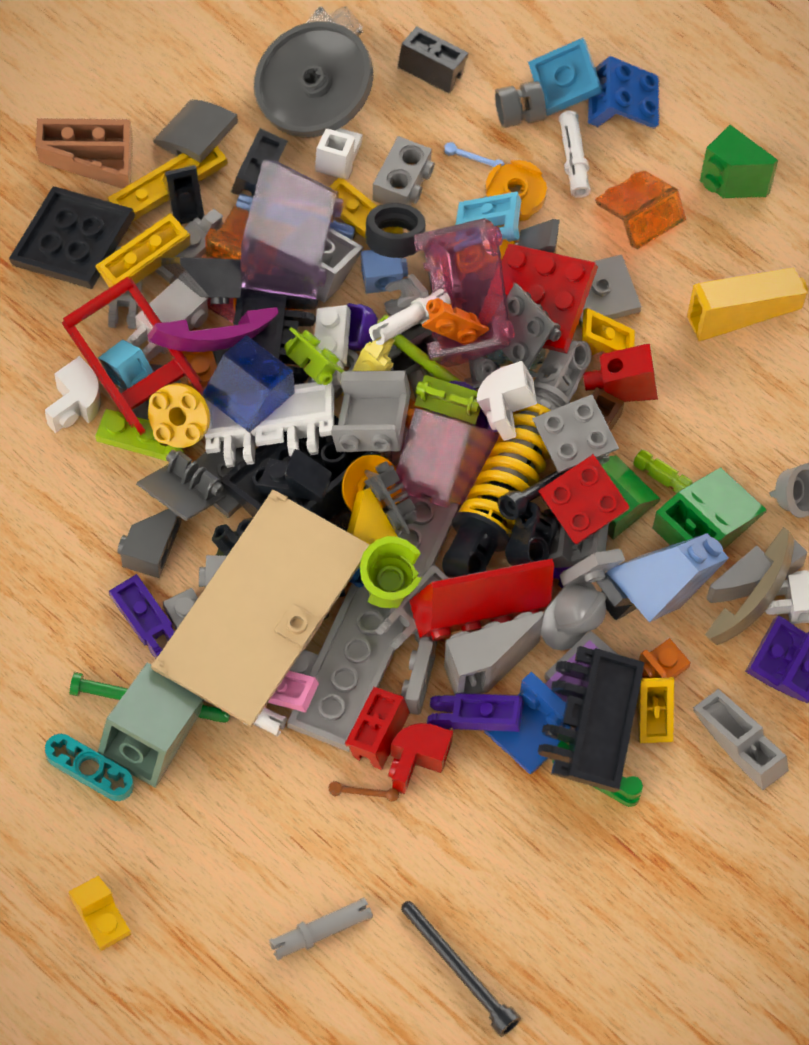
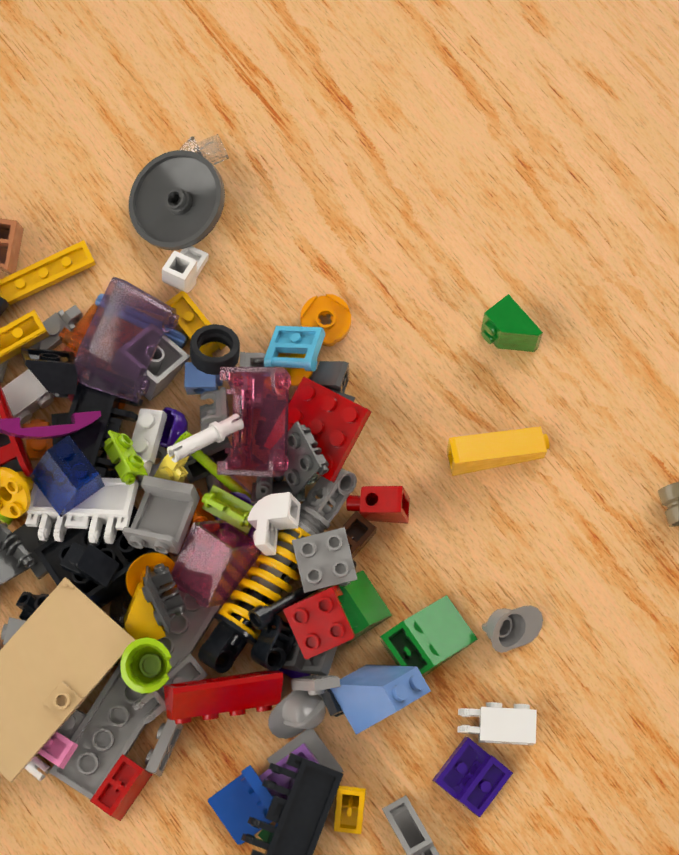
camera: 15 degrees right, 10 degrees up
(184, 194) = (51, 291): black slope -> none
(196, 129) = (74, 231): dark grey slope -> none
(263, 147) = (120, 265): black hinge -> none
(336, 789) = (80, 832): dark orange hinge -> none
(398, 173) = (229, 292): light grey brick -> none
(421, 746) = (152, 809): red brick -> none
(432, 59) = (278, 192): black hinge -> none
(451, 149) = (280, 274): light blue hinge -> none
(453, 323) = (250, 448): orange hinge -> none
(477, 712) = (205, 788): dark purple hinge -> none
(484, 657) = (215, 744): light grey slope -> none
(510, 107) = (334, 248): dark grey wheel -> none
(566, 76) = (384, 224): dark azure plate -> none
(575, 165) = (379, 303): white pin -> none
(605, 333) = (374, 465): yellow slope -> none
(612, 290) = (386, 422): light grey plate -> none
(625, 92) = (431, 244): blue bracket -> none
(645, 206) = (427, 349): clear orange bracket -> none
(661, 471) = (398, 592): lime axle -> none
(664, 661) = (365, 764): orange bracket -> none
(730, 625) = (474, 694): dark tan slope -> none
(747, 573) = (459, 695): light grey slope -> none

